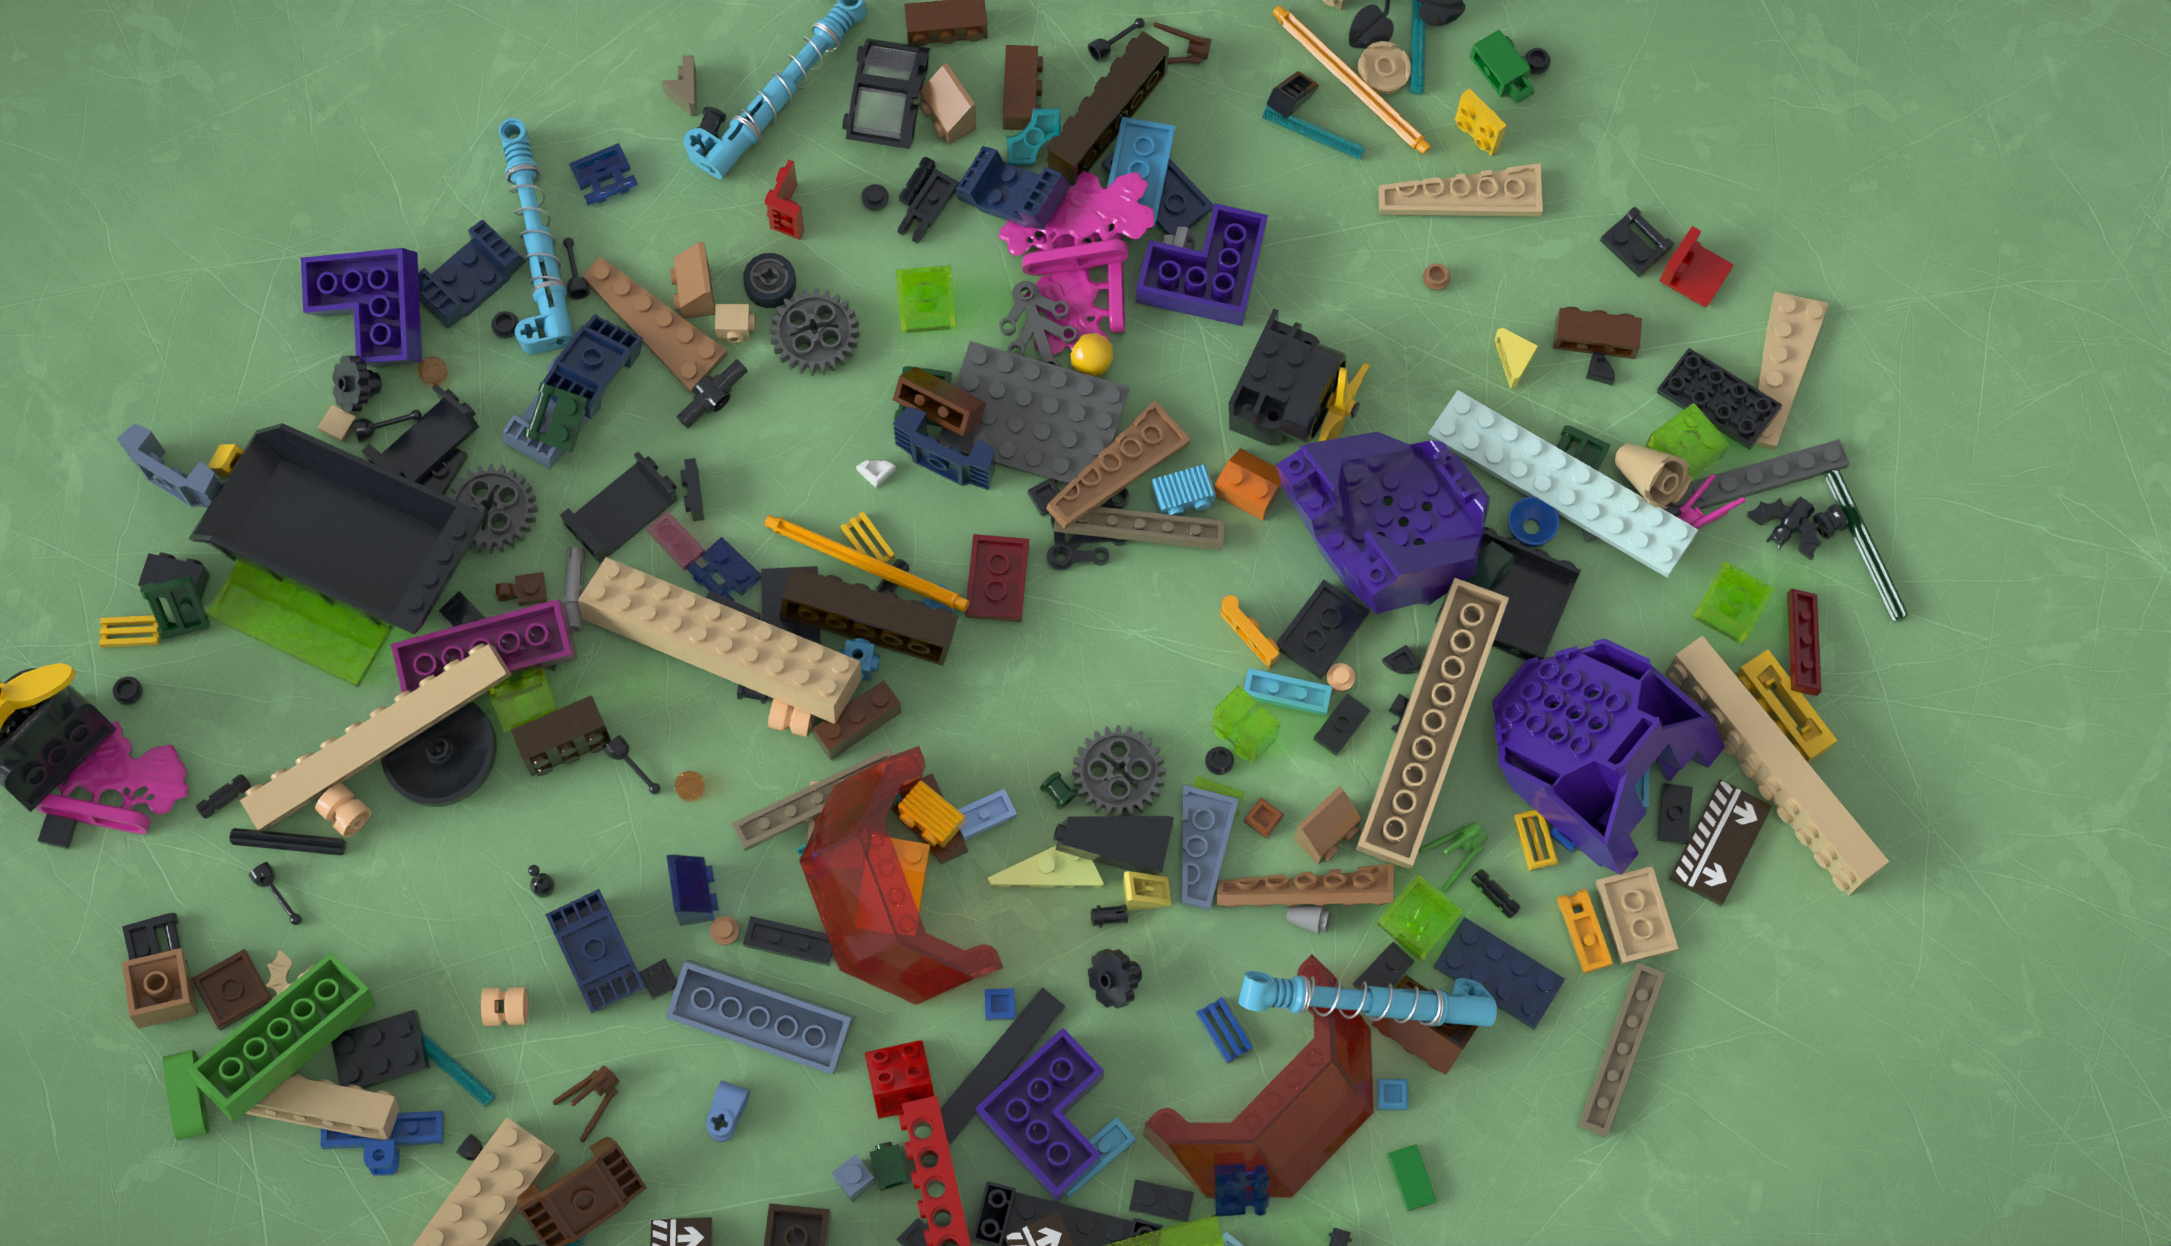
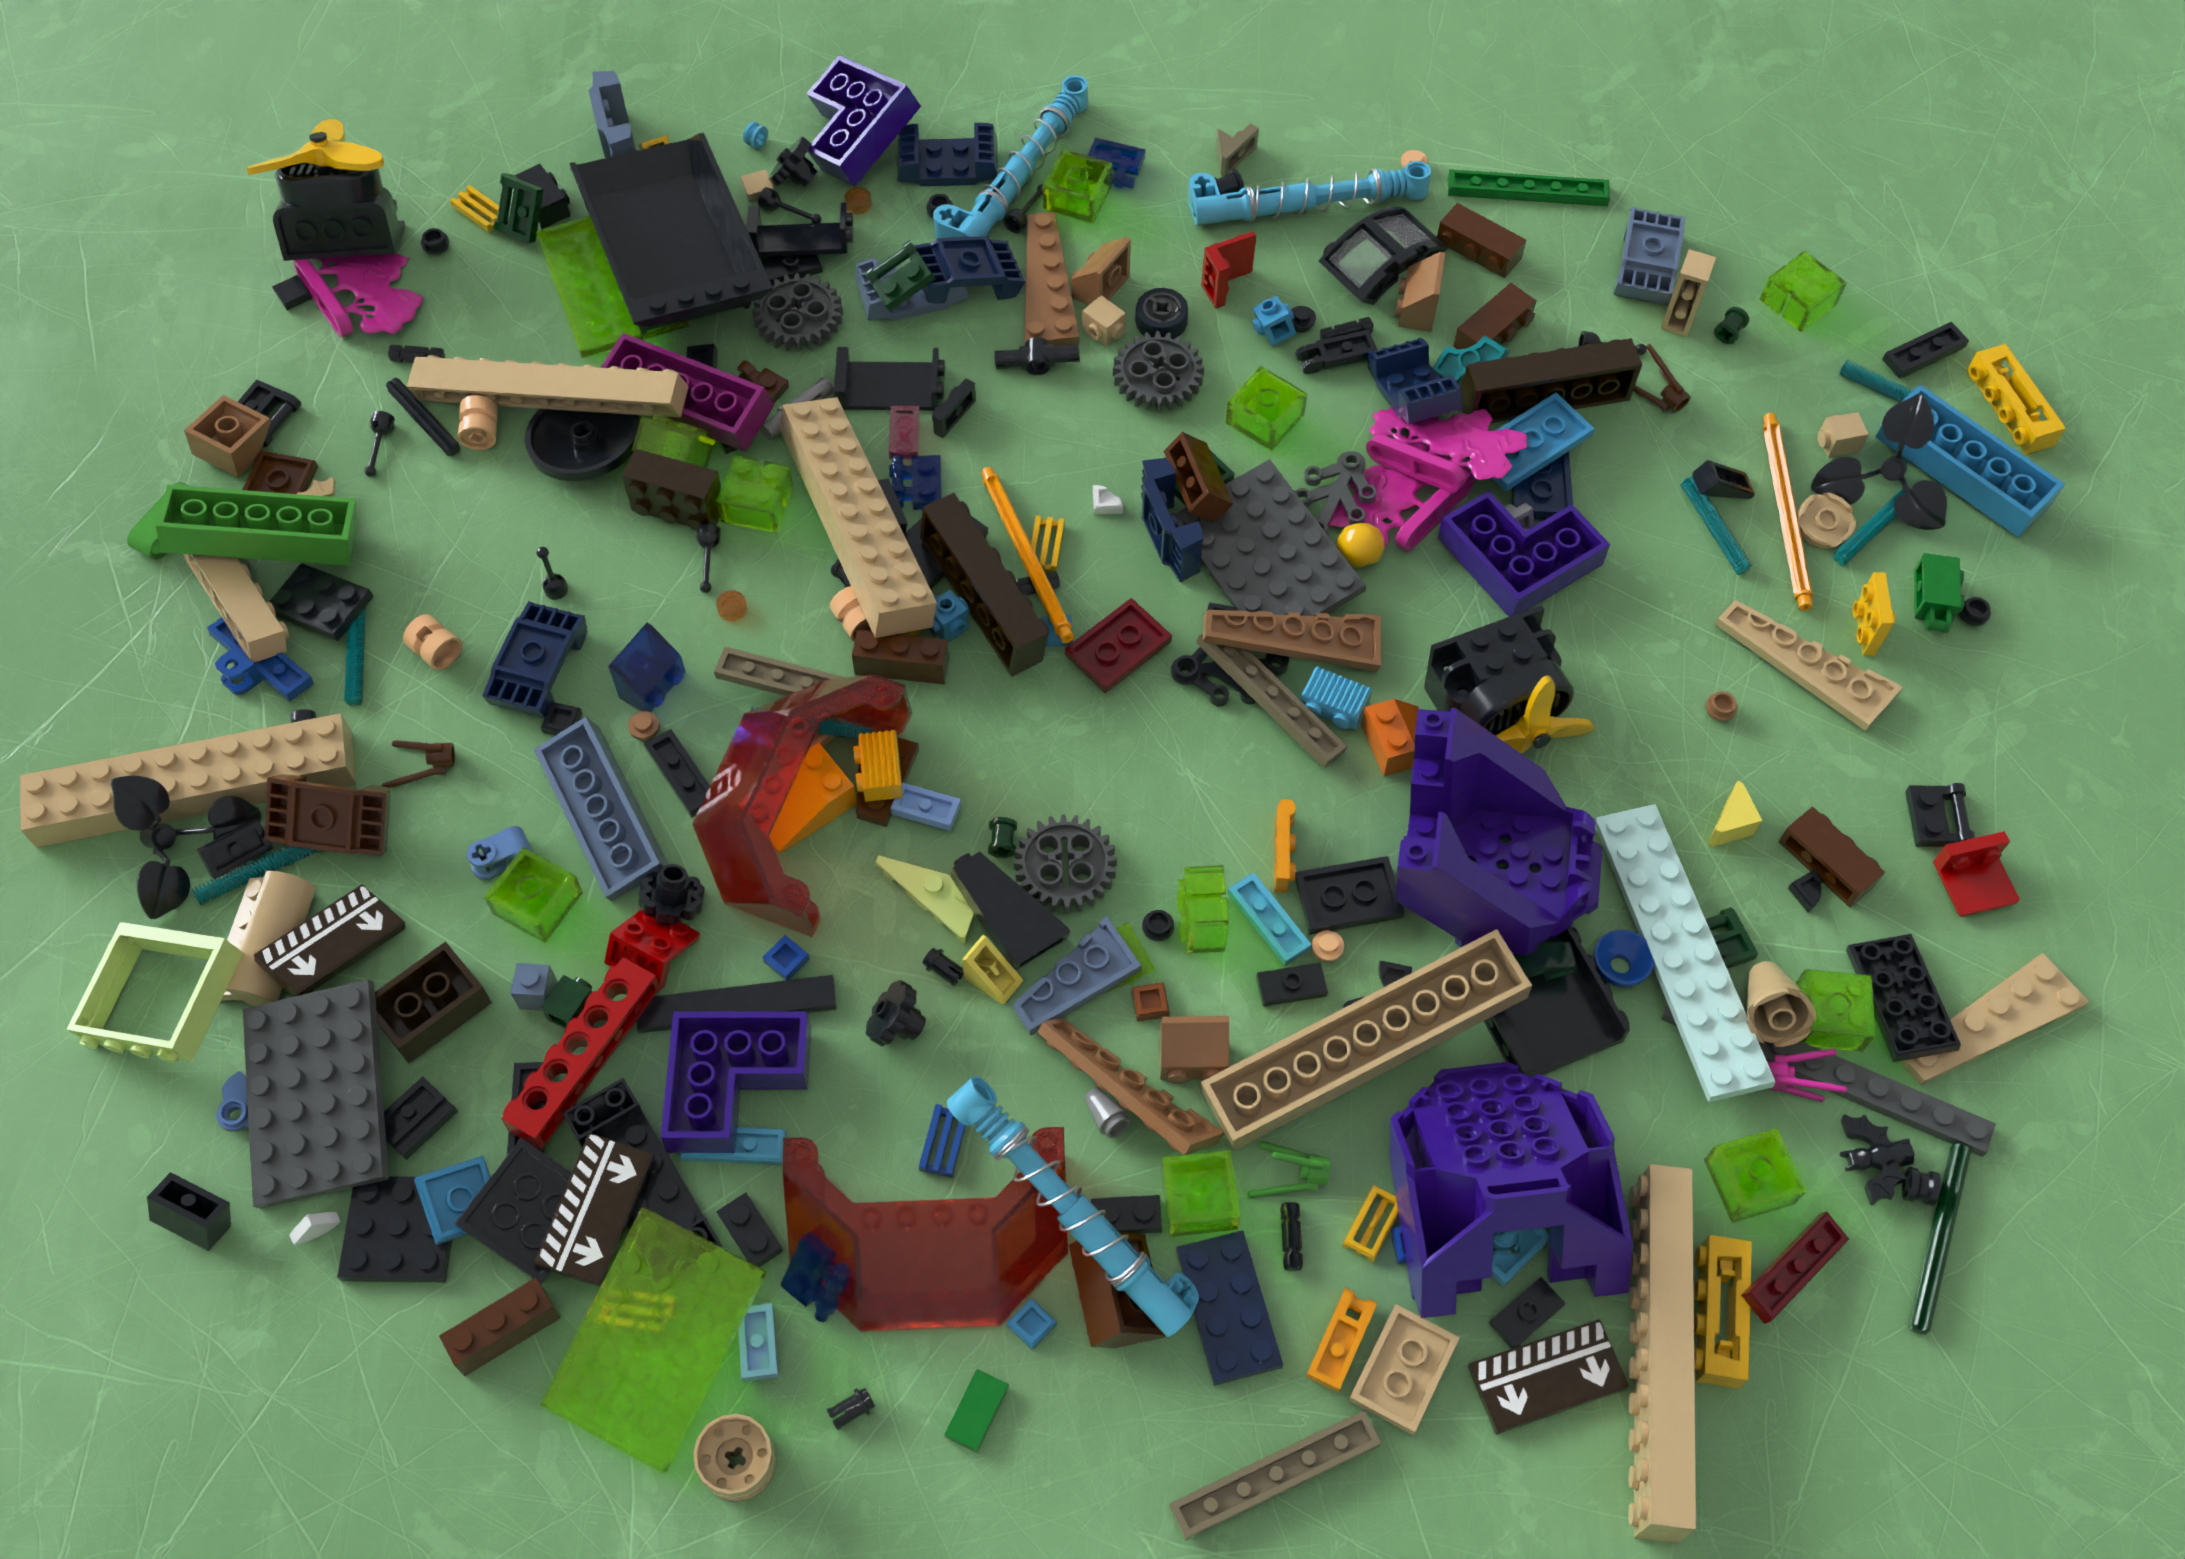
camera: 45 degrees right, 10 degrees down
(290, 380) = (755, 135): none -> medium azure bush
(601, 220) = (1077, 185): none -> clear neon green brick
(619, 685) = (751, 494): none -> clear neon green piece
(786, 1117) = (533, 894): none -> clear neon green brick
(861, 218) = (1274, 320): none -> dark azure brick
(878, 1032) = (671, 895): none -> black plant

